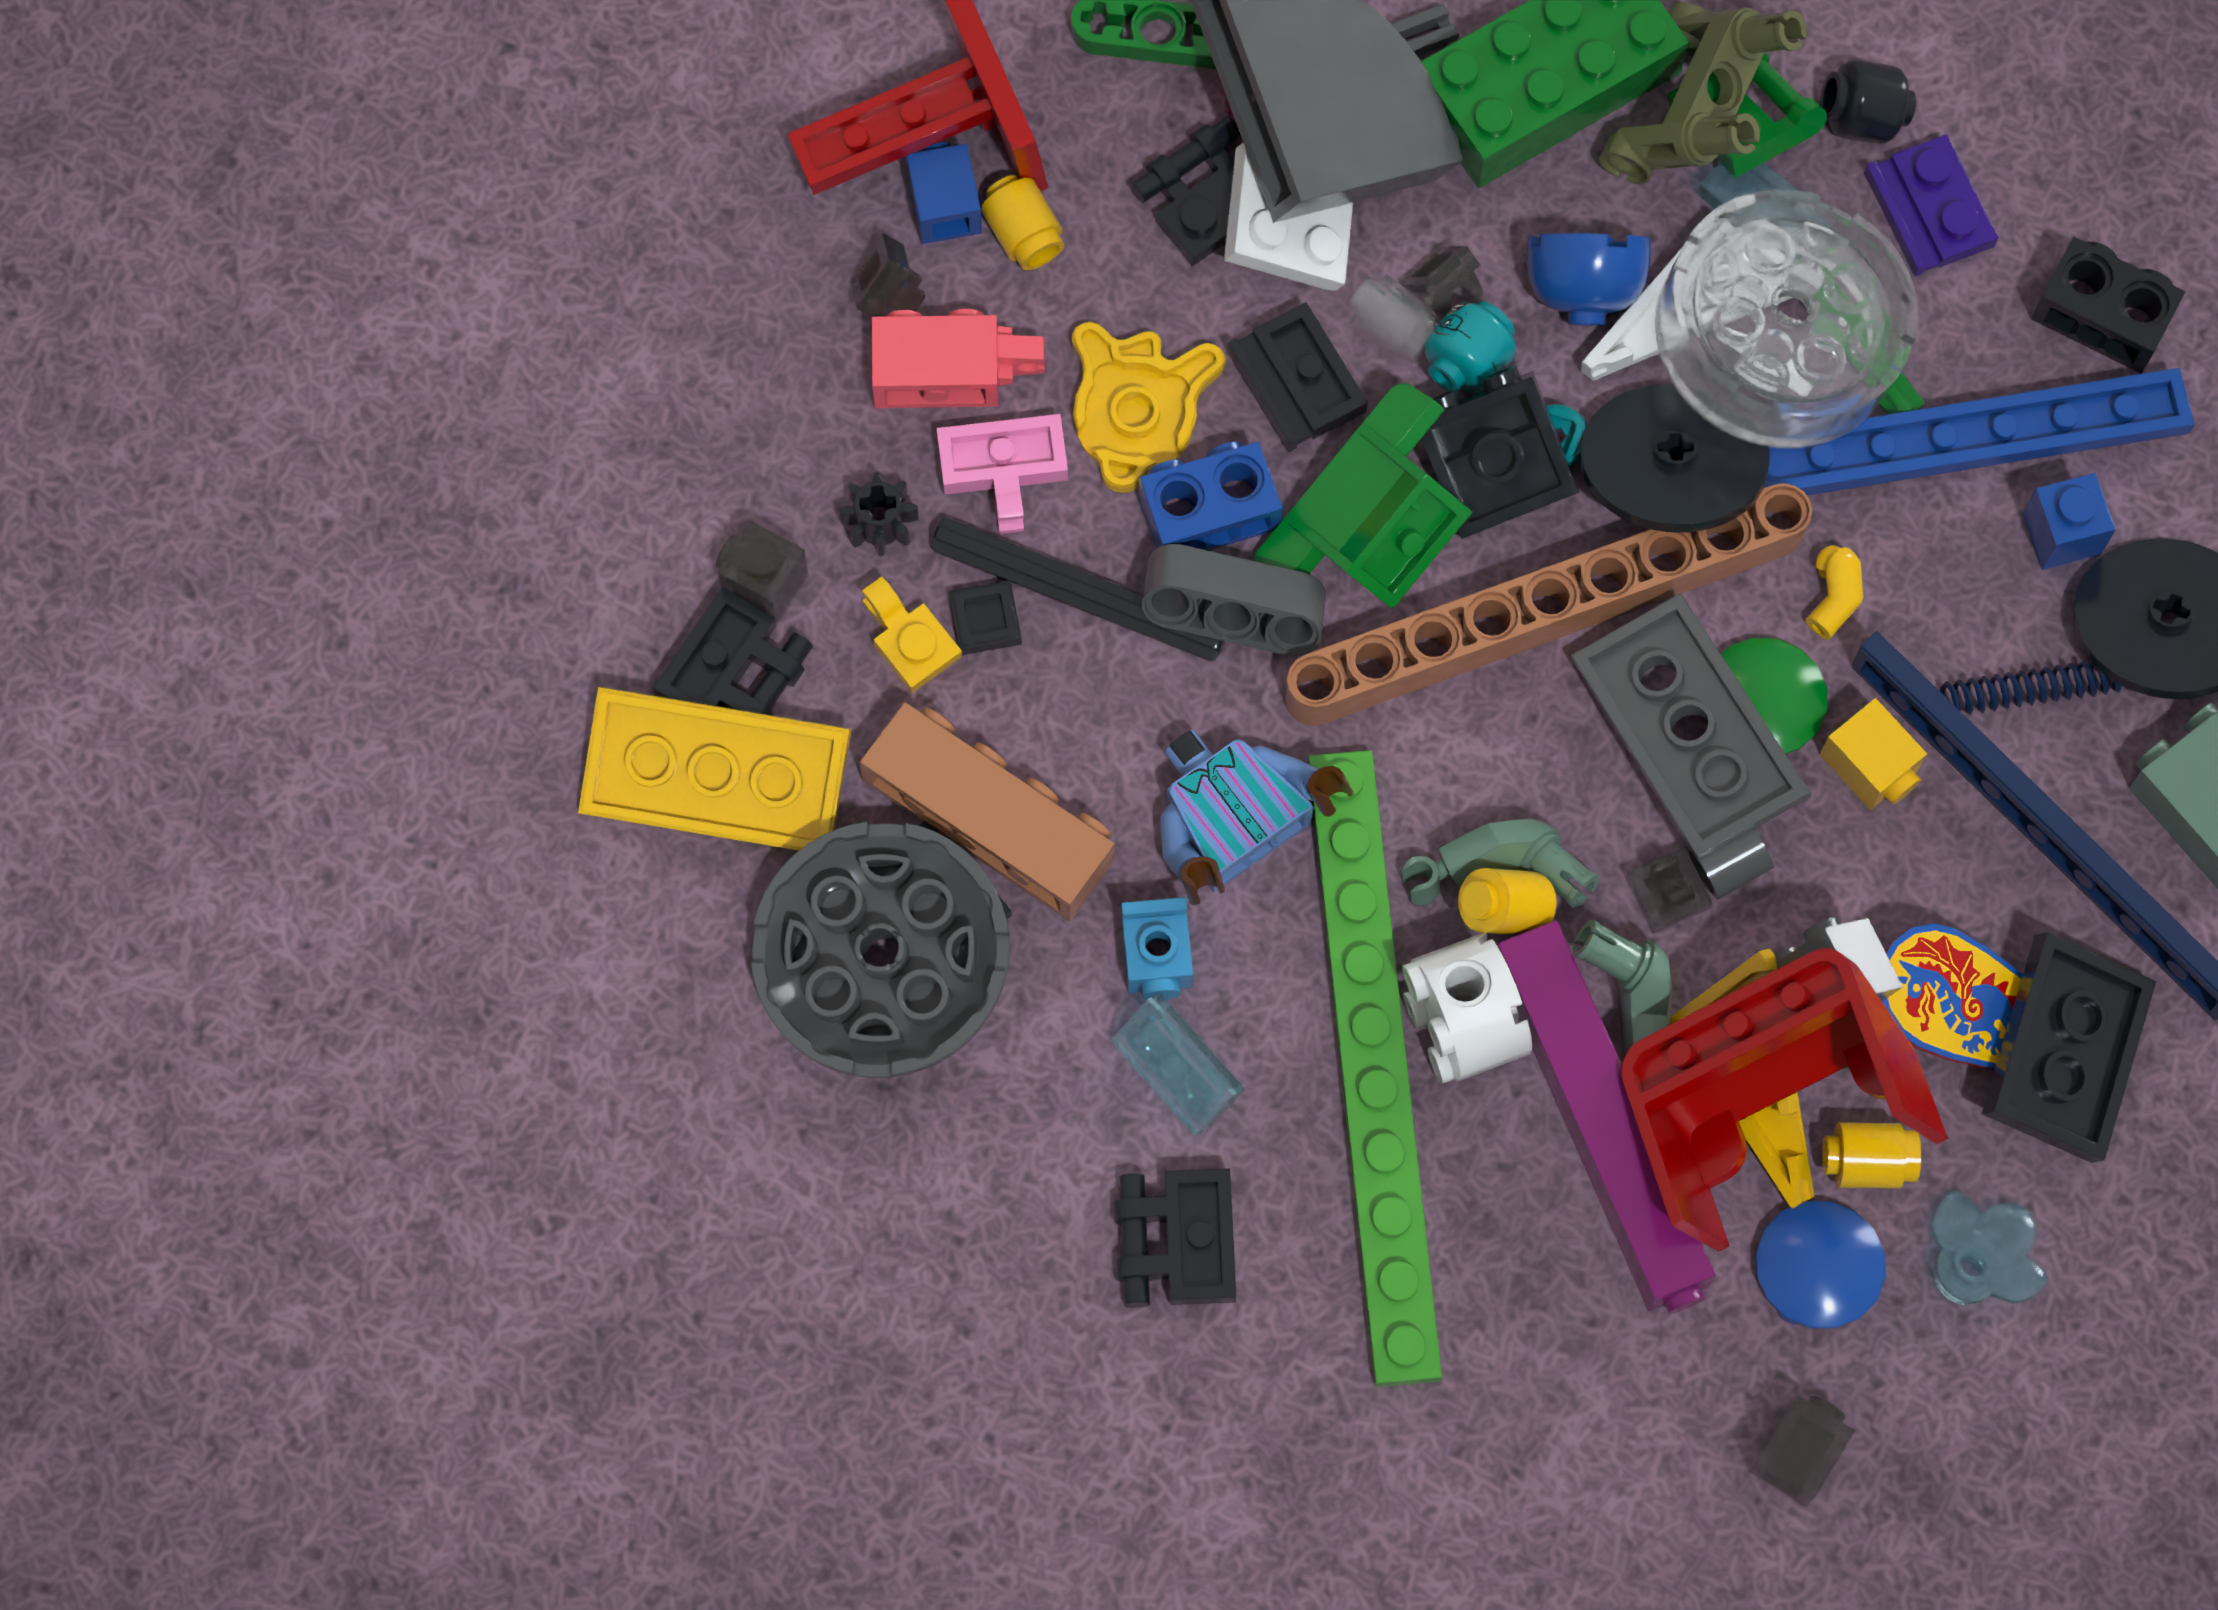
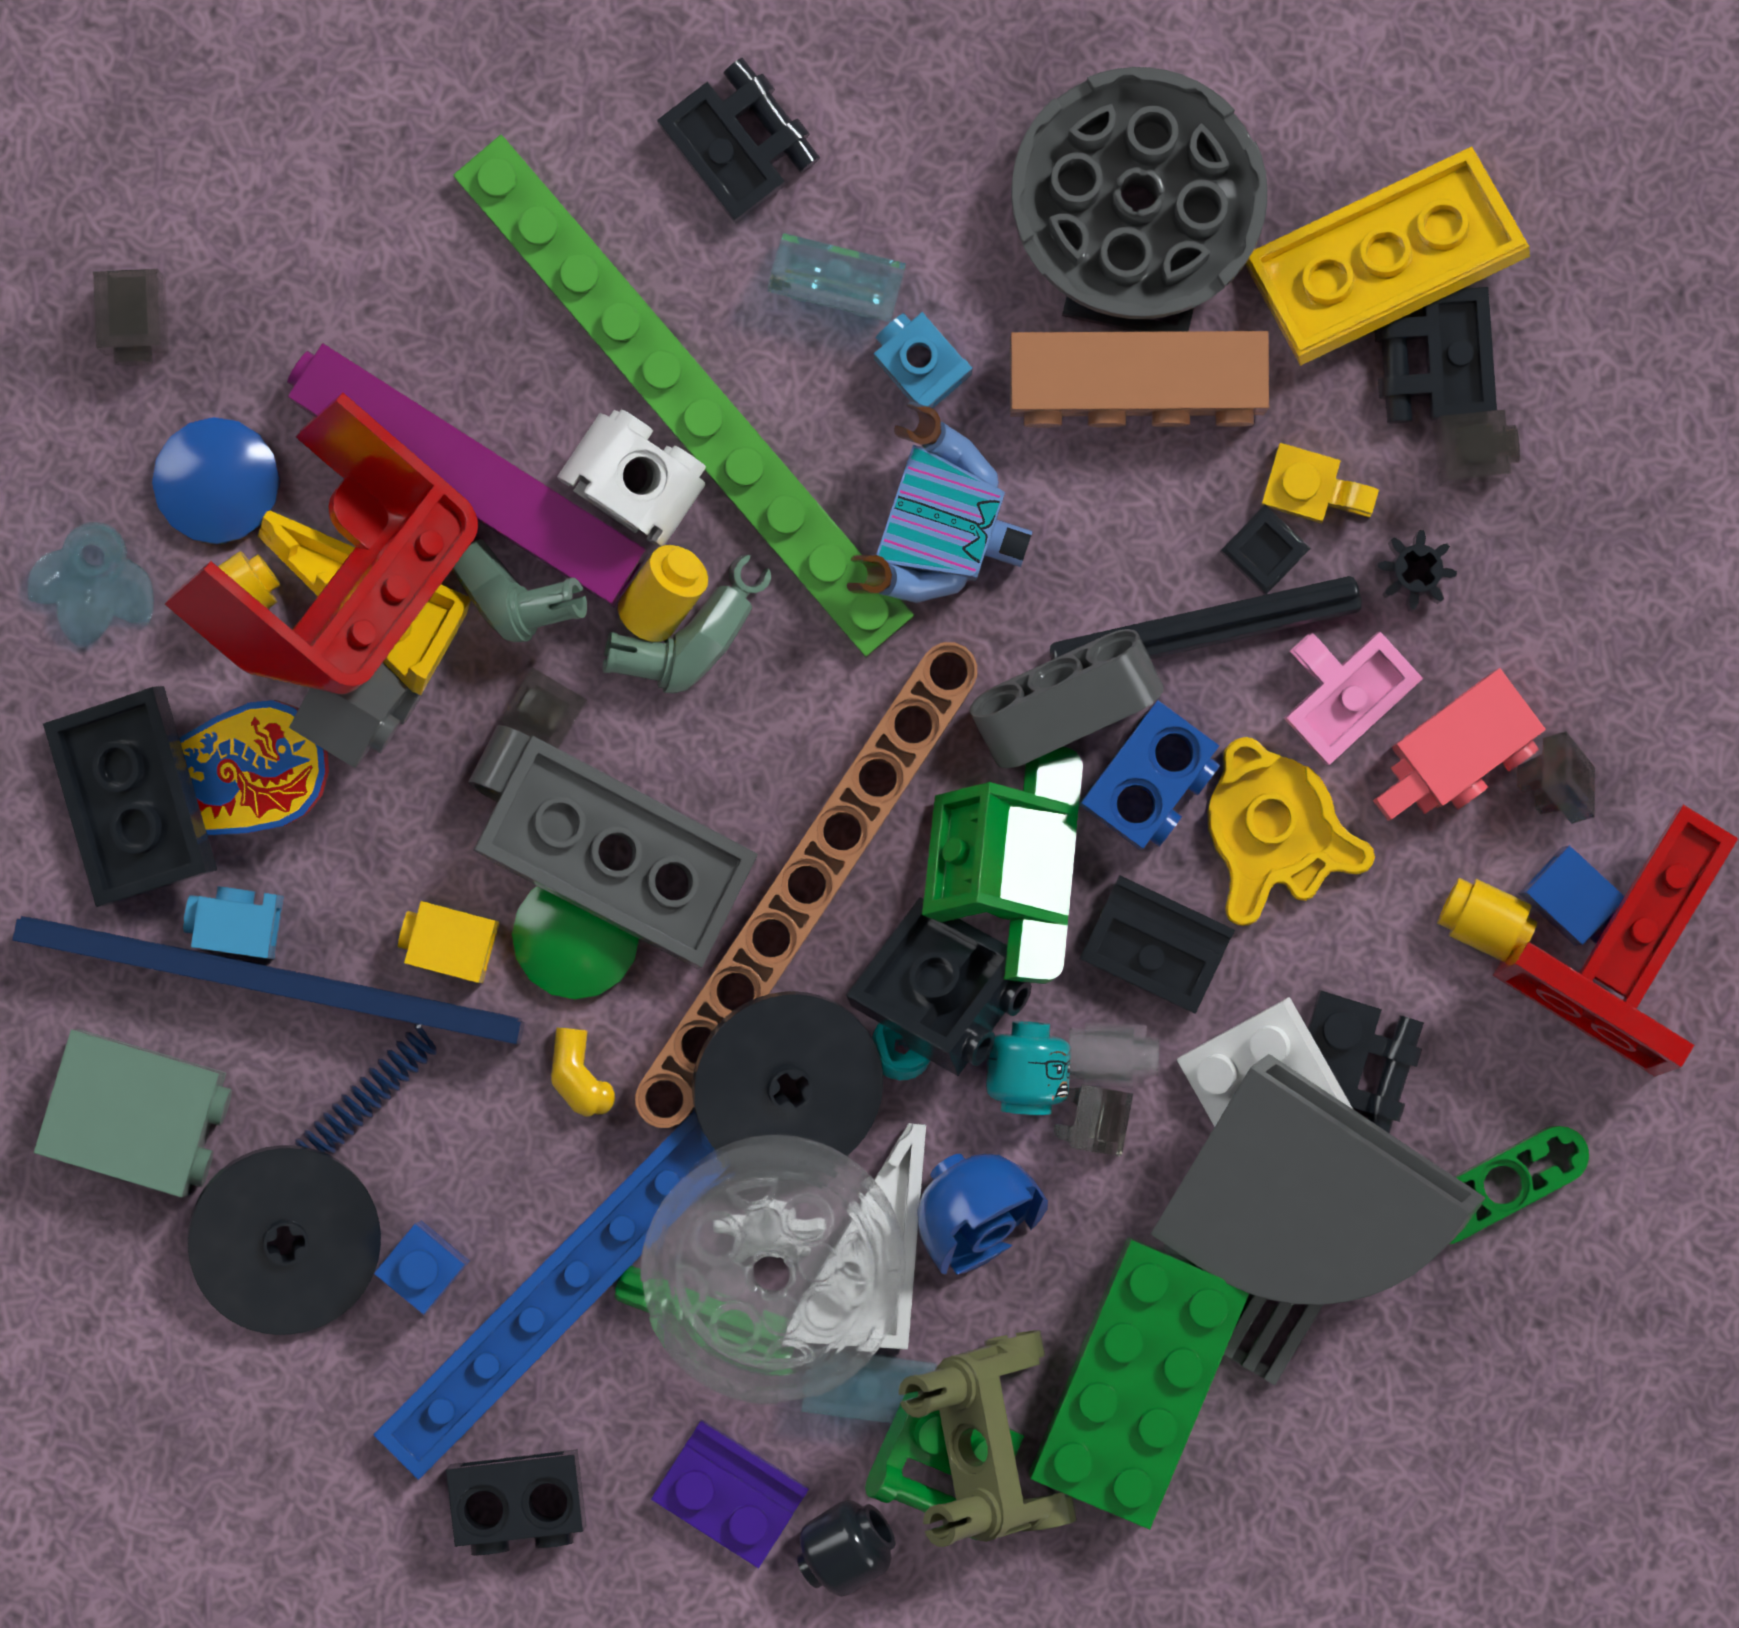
camera: 145 degrees right, 15 degrees up
(2046, 889) = (234, 922): none -> dark azure brick

